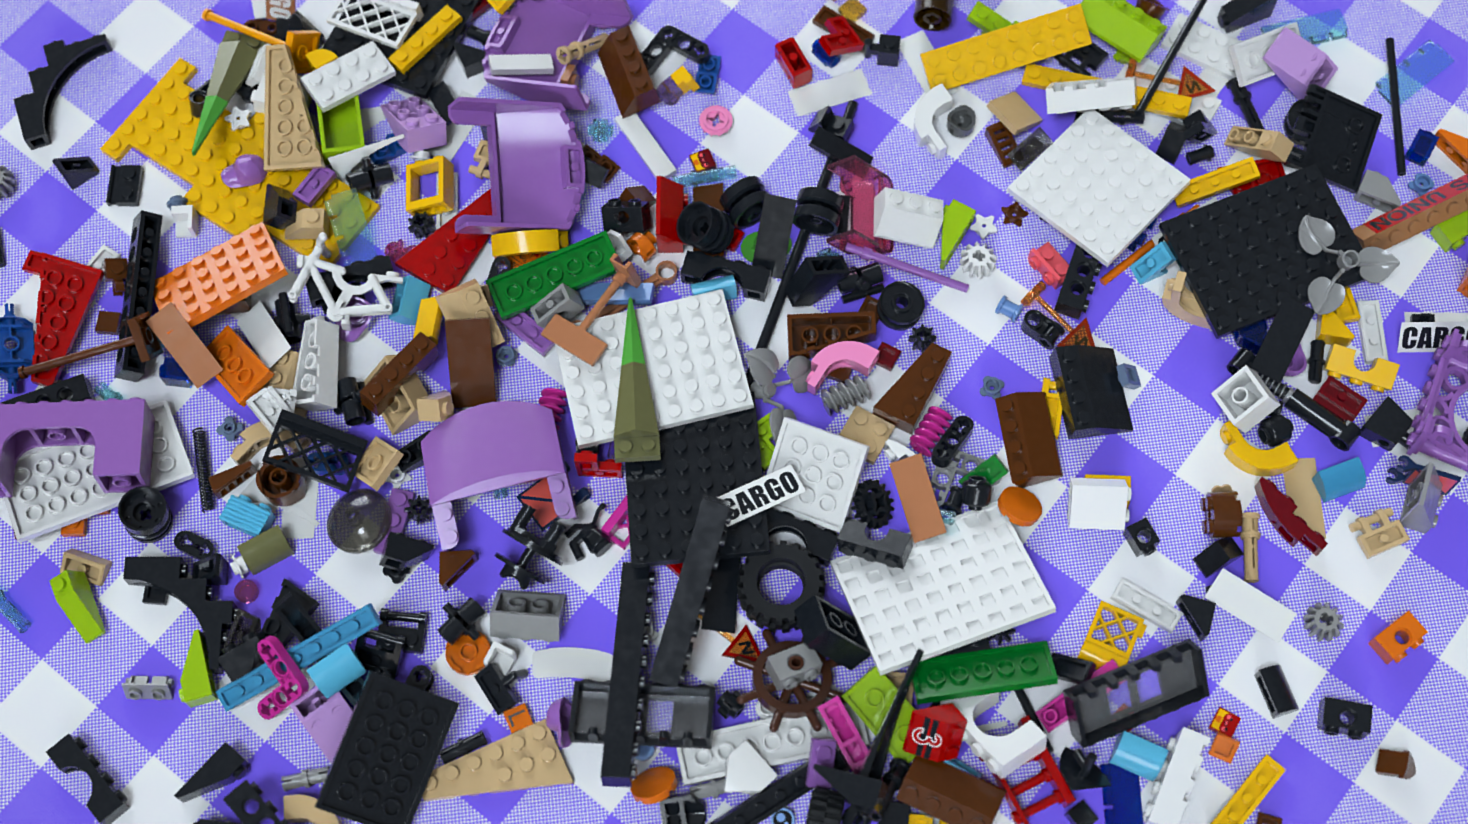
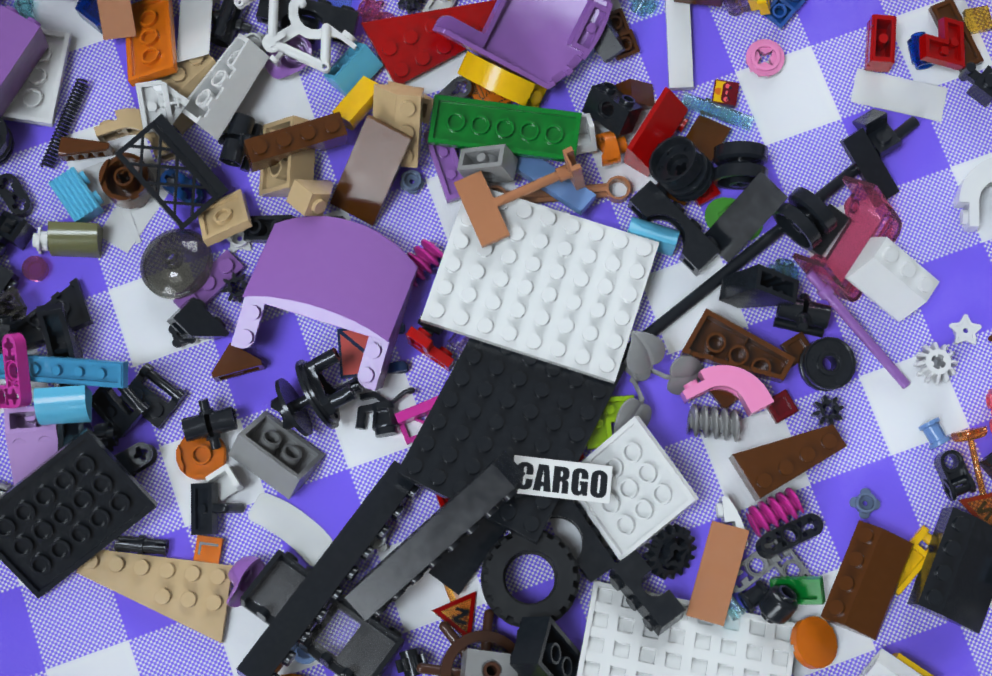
camera: 30 degrees right, 10 degrees up
(233, 433) = (118, 100): sand blue plate -> none
(635, 422) = (488, 331): olive plate -> none
(868, 430) = (709, 473): tan plate -> none
(955, 224) = (938, 311): lime slope -> none

